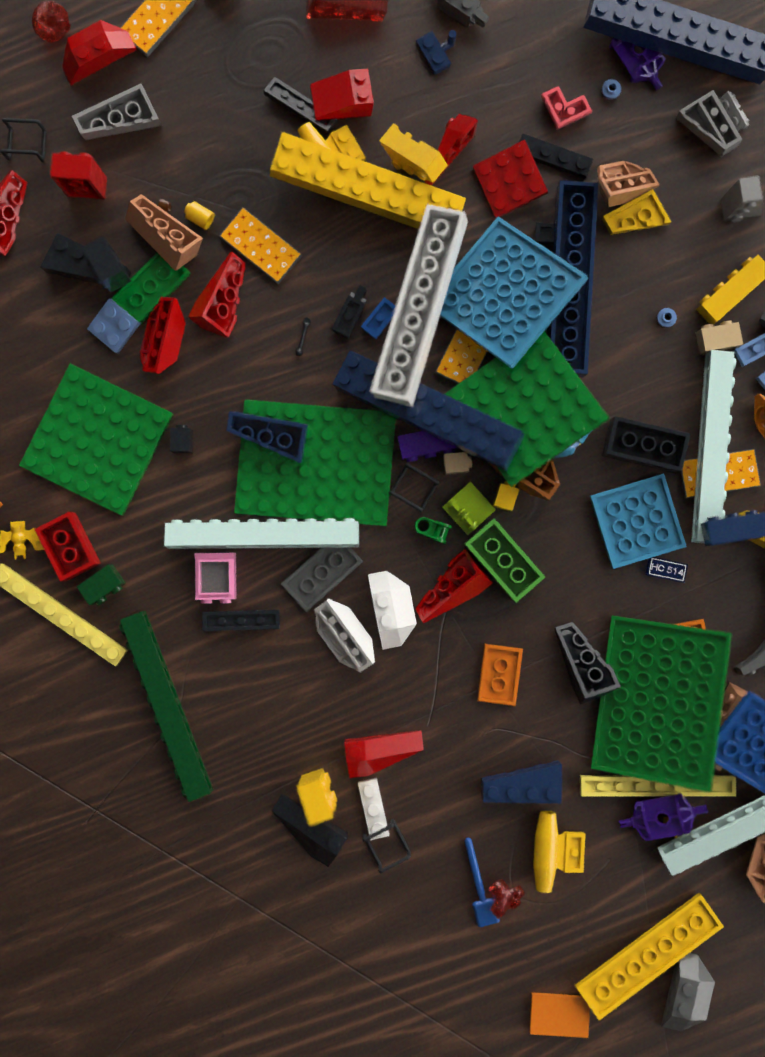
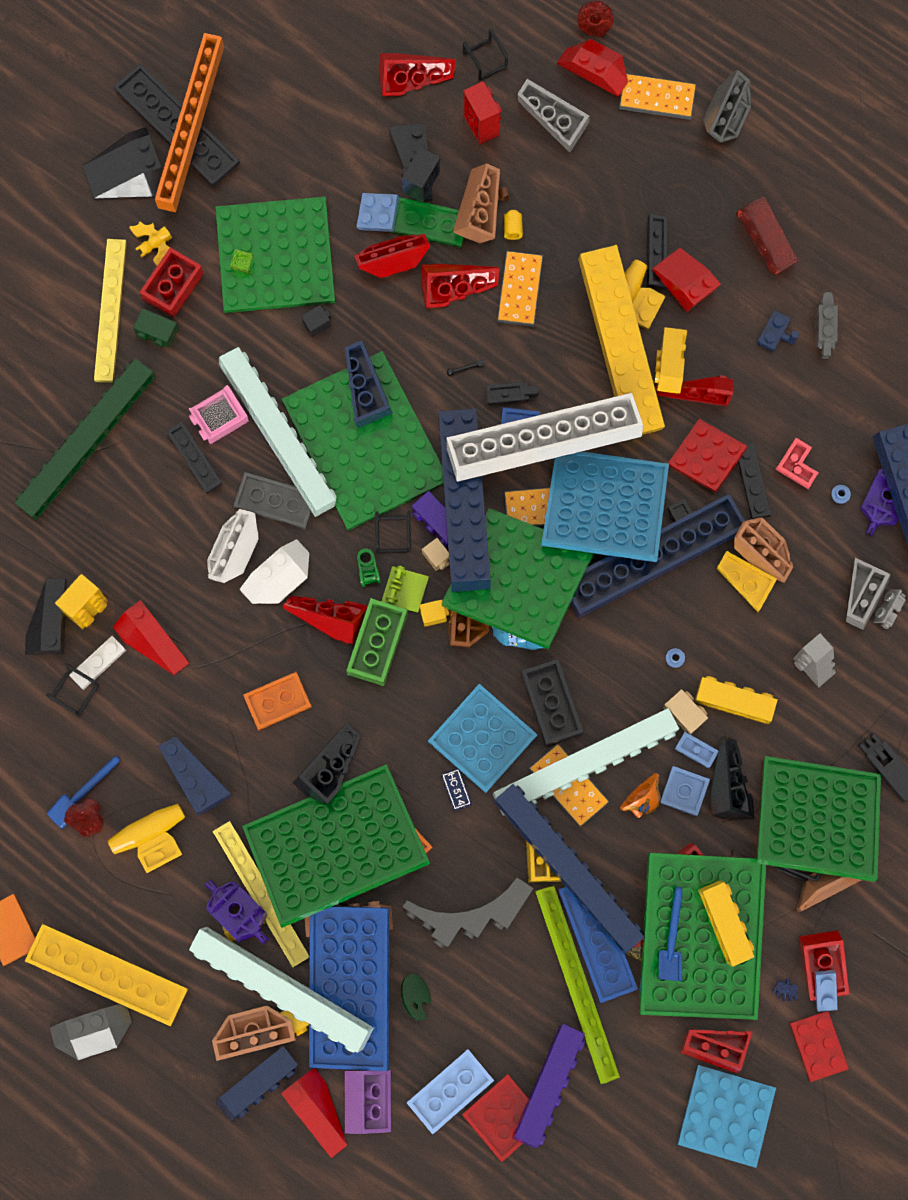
camera: 60 degrees right, 10 degrees down
(86, 472) = (241, 261): none -> clear neon green plate

